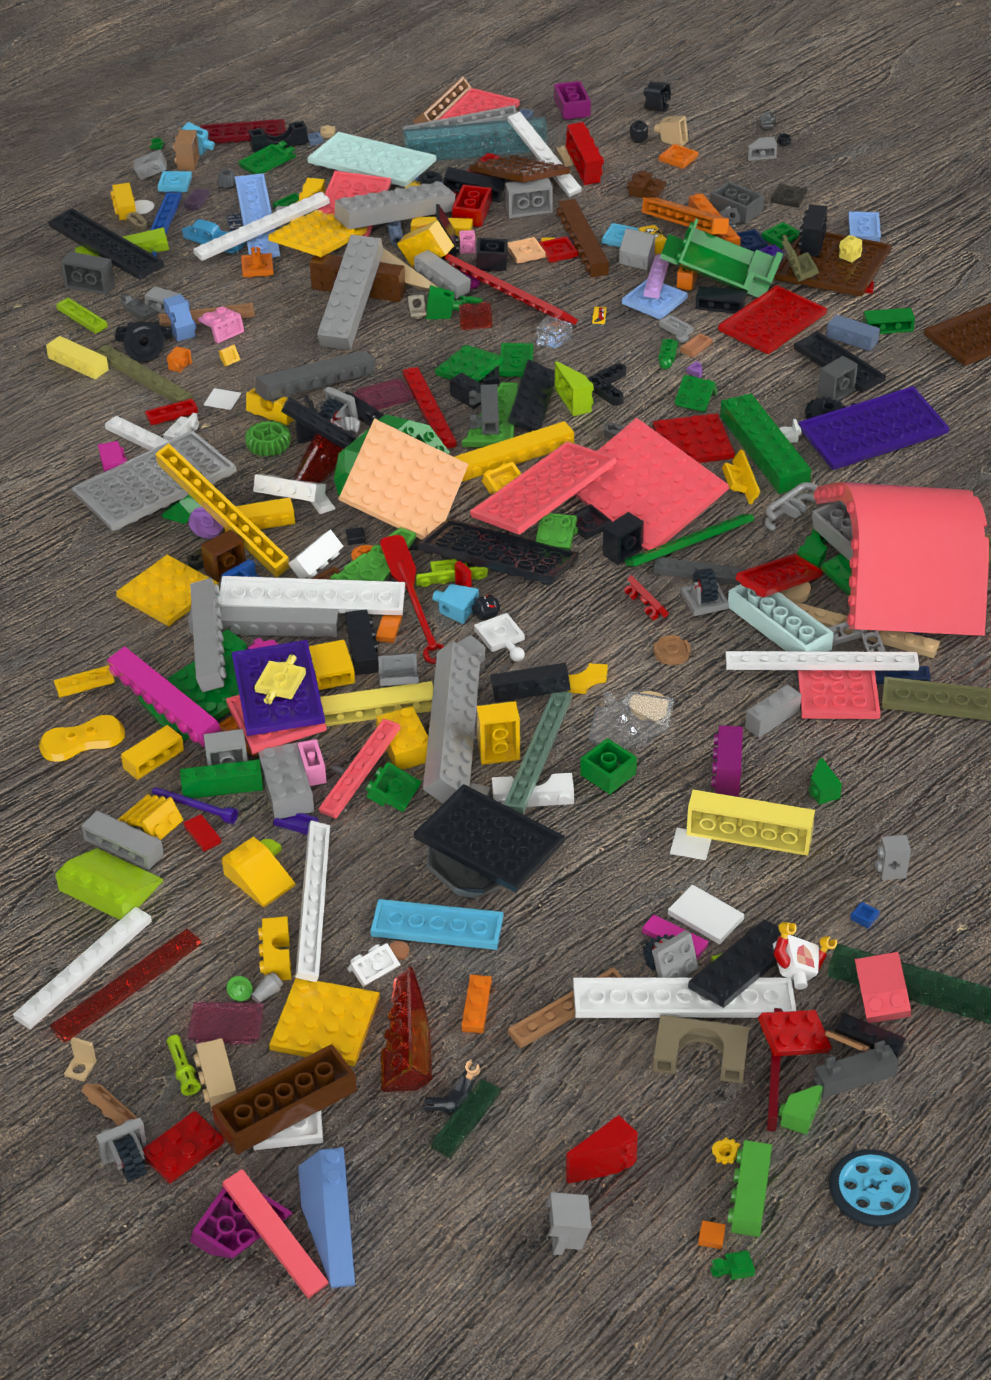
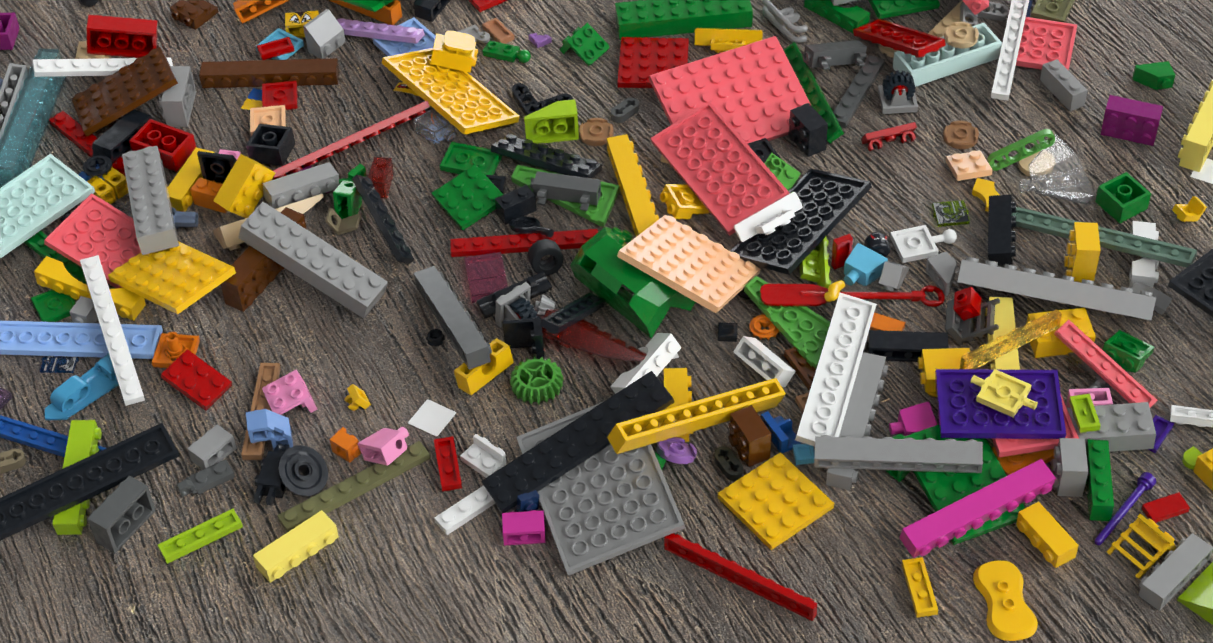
camera: 75 degrees left, 5 degrees up
(79, 579) = (741, 576): none -> red plate
(131, 451) = (527, 502): none -> dark blue plate
(177, 374) = (384, 445): none -> bright pink torso
(212, 465) = (575, 442): none -> black plate
(228, 279) = (196, 380): none -> red plate
(280, 745) = (1084, 413): none -> lime plate
(360, 688) = (1011, 341): none -> clear yellow plate
(406, 410) = (539, 250): none -> black tyre
(407, 577) = (834, 290): none -> yellow arm
(412, 663) = (967, 303): none -> red brick
(419, 323) = (382, 218): none -> black plate
(445, 401) = (529, 225): none -> black piece
(452, 622) = (893, 275): none -> light grey slope
(490, 528) = (769, 217): none -> white bracket
(555, 654) = (951, 213): none -> piece
(584, 422) = (595, 131): none -> medium nougat tile
(593, 326) = (451, 92): none -> yellow plate
(610, 231) = (275, 48): none -> red tile
(610, 821) = (1190, 212): none -> yellow bracket
(623, 657) = (968, 165): none -> light nougat plate
(643, 318) = (454, 51): none -> yellow brick
(647, 681) = (1022, 152): none -> bright green beam
(741, 540) = (834, 54): none -> dark grey brick
(801, 616) = (961, 35): none -> tan tile

